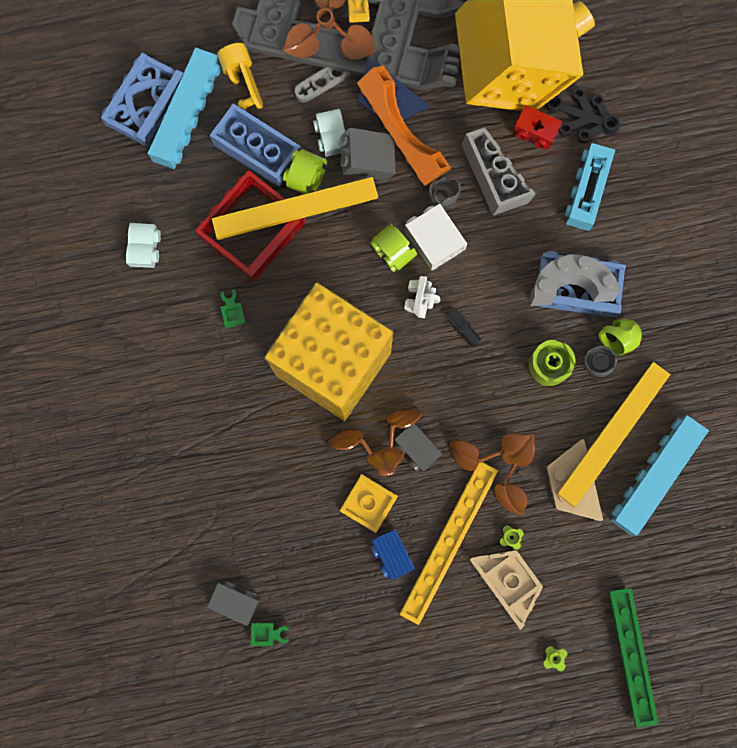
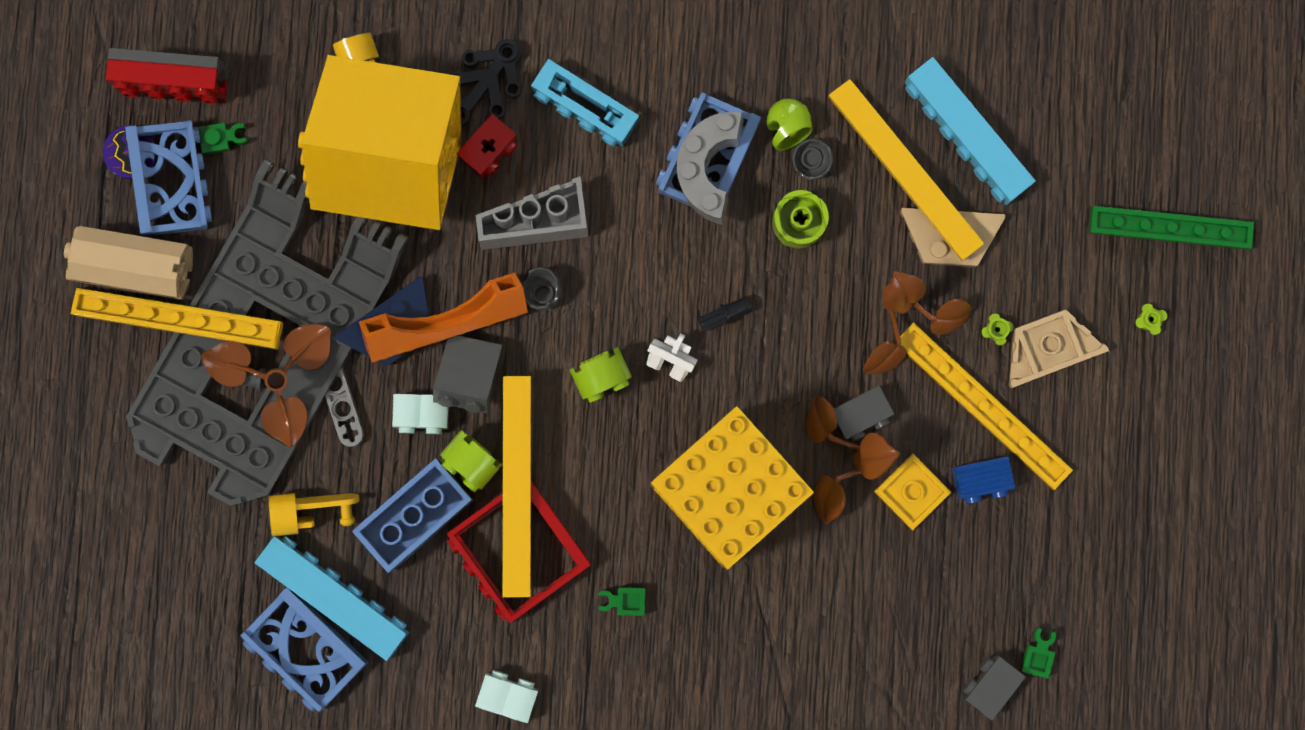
camera: 80 degrees left, 5 degrees up
(435, 236) = (597, 317): white brick -> none

